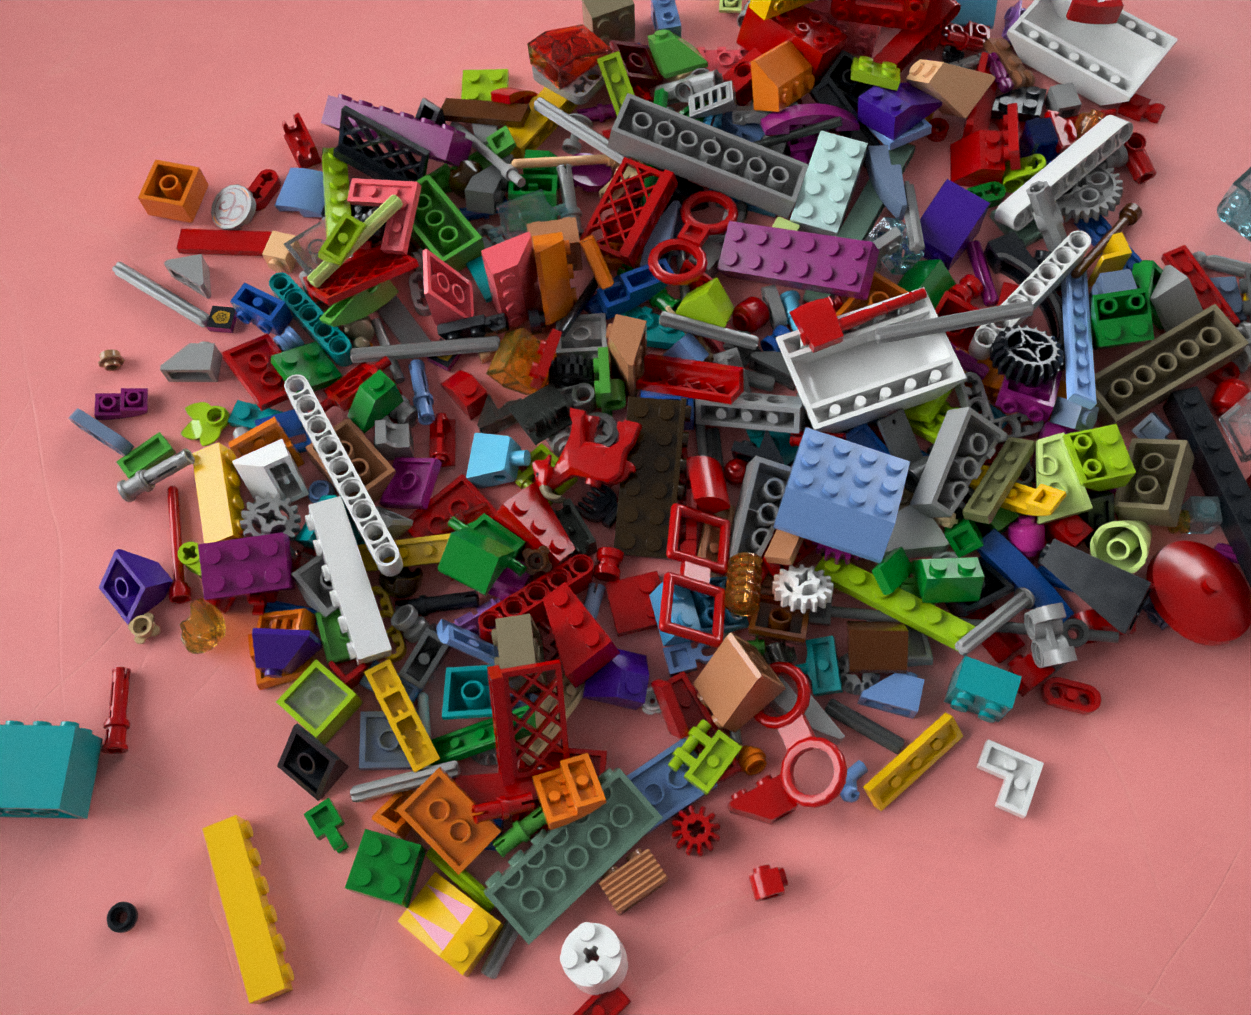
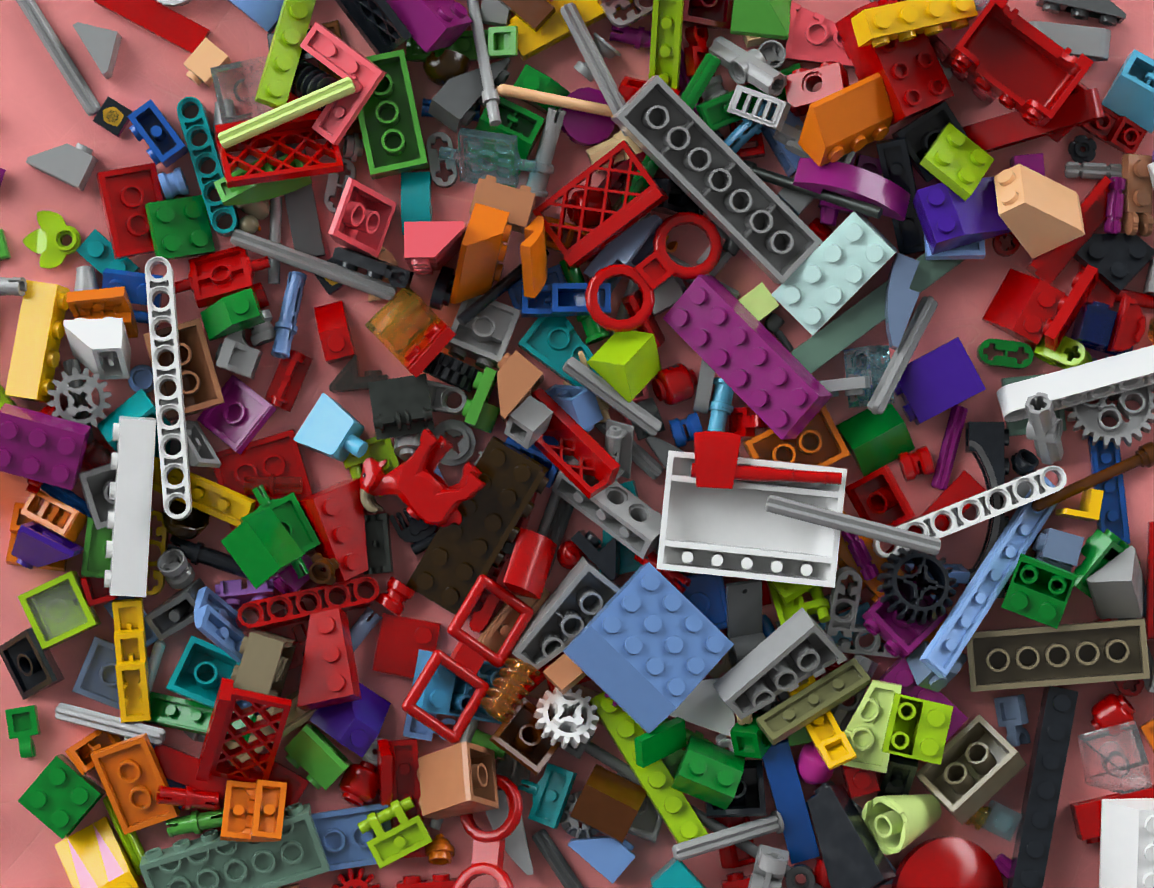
camera: 20 degrees right, 20 degrees up
(341, 239) = (271, 112): lime slope -> none
(604, 723) = (317, 756): none -> bright green slope
(652, 373) = (528, 422): none -> light grey brick
(652, 732) = (360, 783): none -> red head
(961, 40) = (1093, 146): red axle -> none

